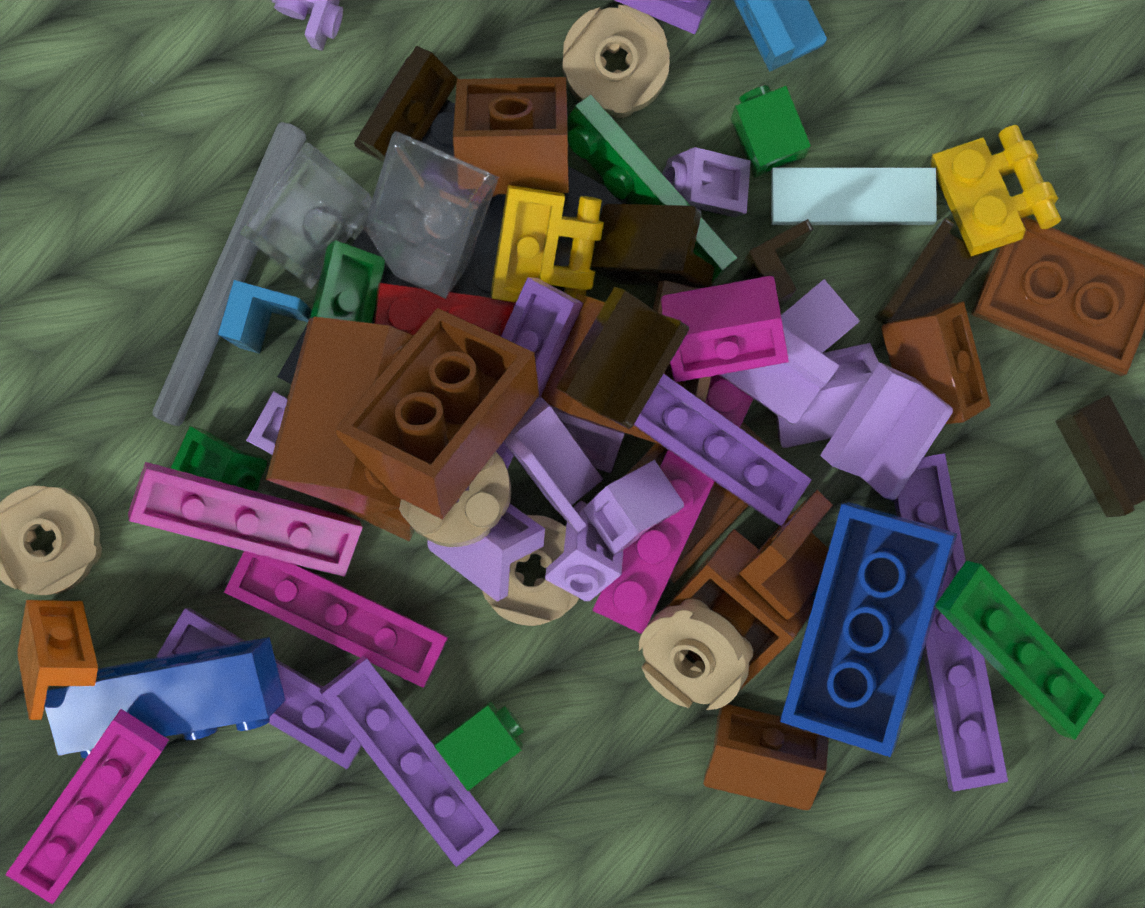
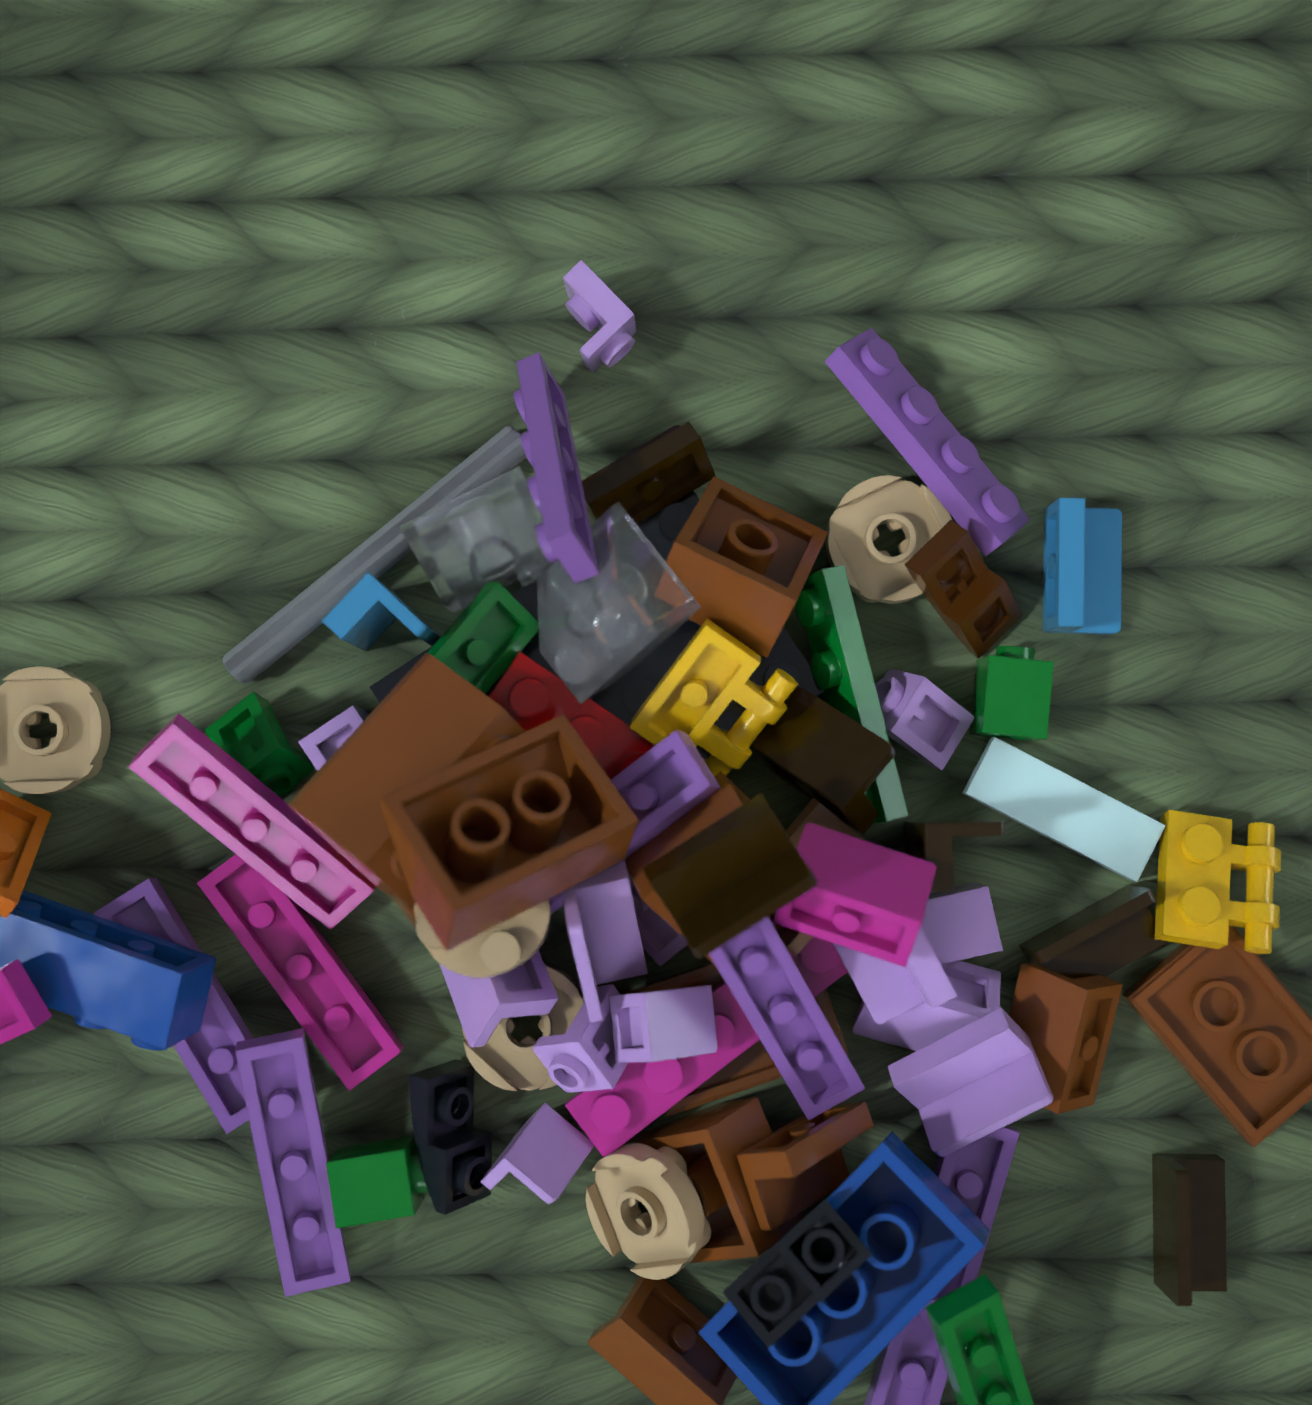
camera: 30 degrees right, 0 degrees up
(341, 141) = (557, 478): none -> medium lavender plate
(525, 693) = (448, 1146): none -> black slope
(594, 653) = (542, 1155): none -> lavender panel
(691, 68) = (963, 589): none -> reddish brown slope
(827, 632) = (797, 1273): none -> black slope

